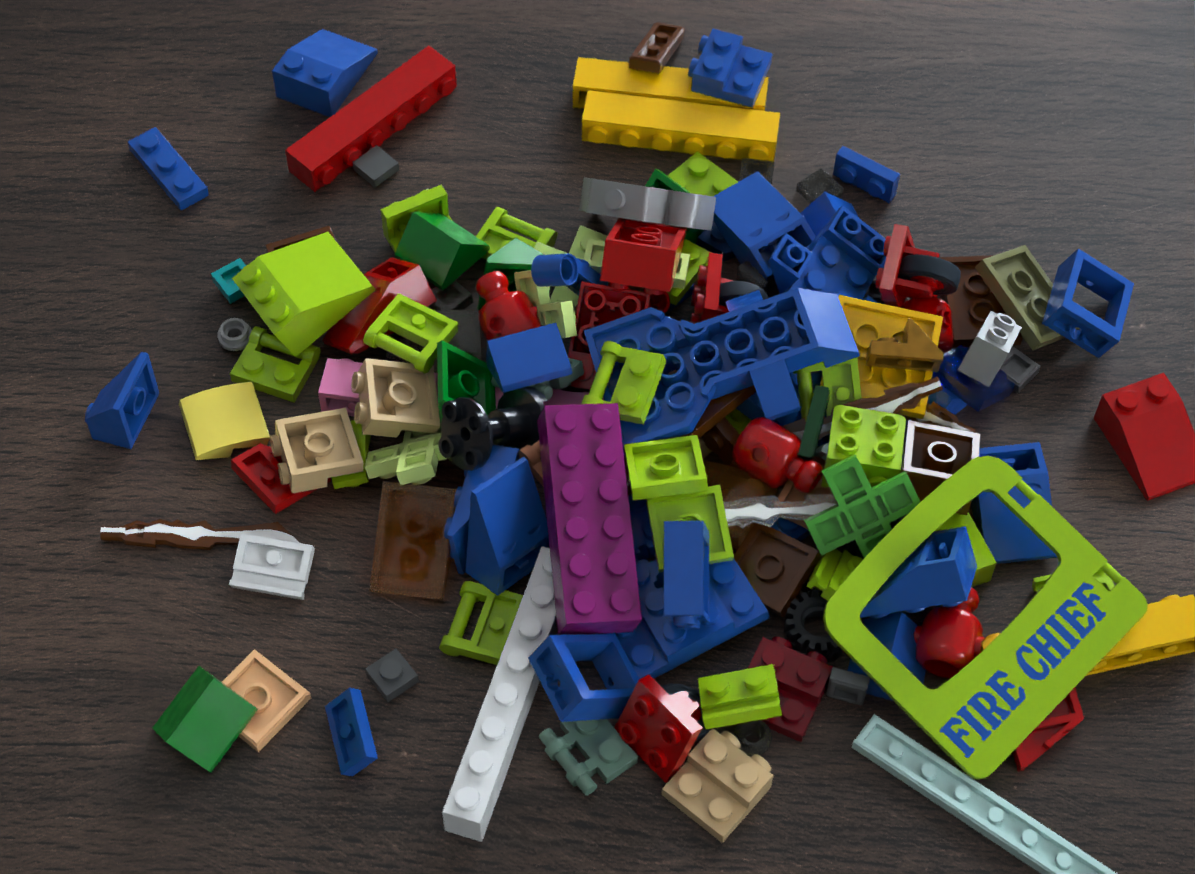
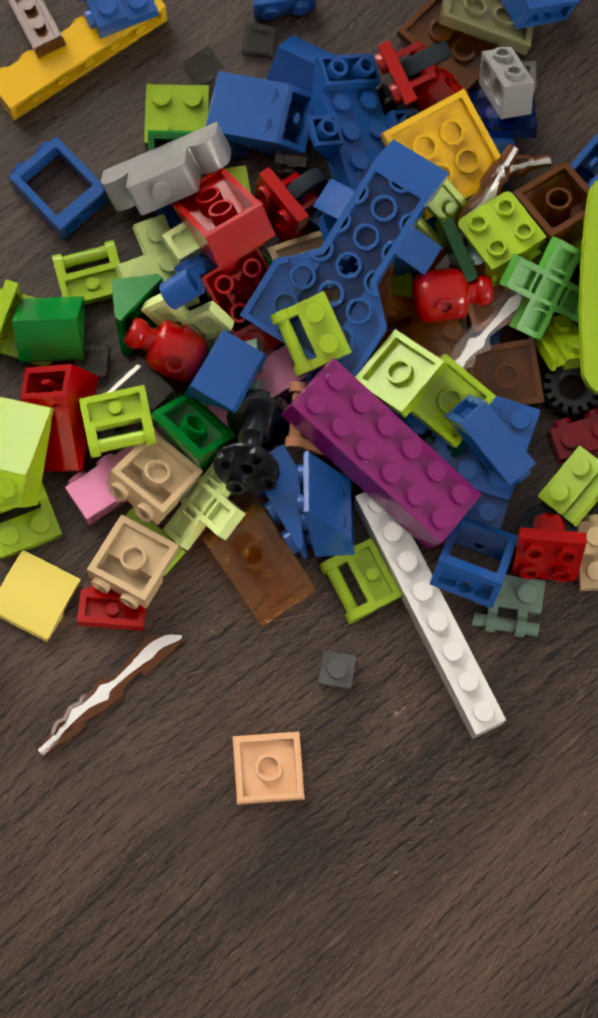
camera: 45 degrees left, 20 degrees up
(204, 719) = (252, 814): green slope -> none
(272, 566) = (183, 669): white plate -> none
(351, 732) = (355, 733): blue plate -> none
(538, 192) = (76, 212): none -> blue window
(679, 126) = (115, 74): yellow brick -> none
(915, 352) = (470, 132): pearl gold slope -> none

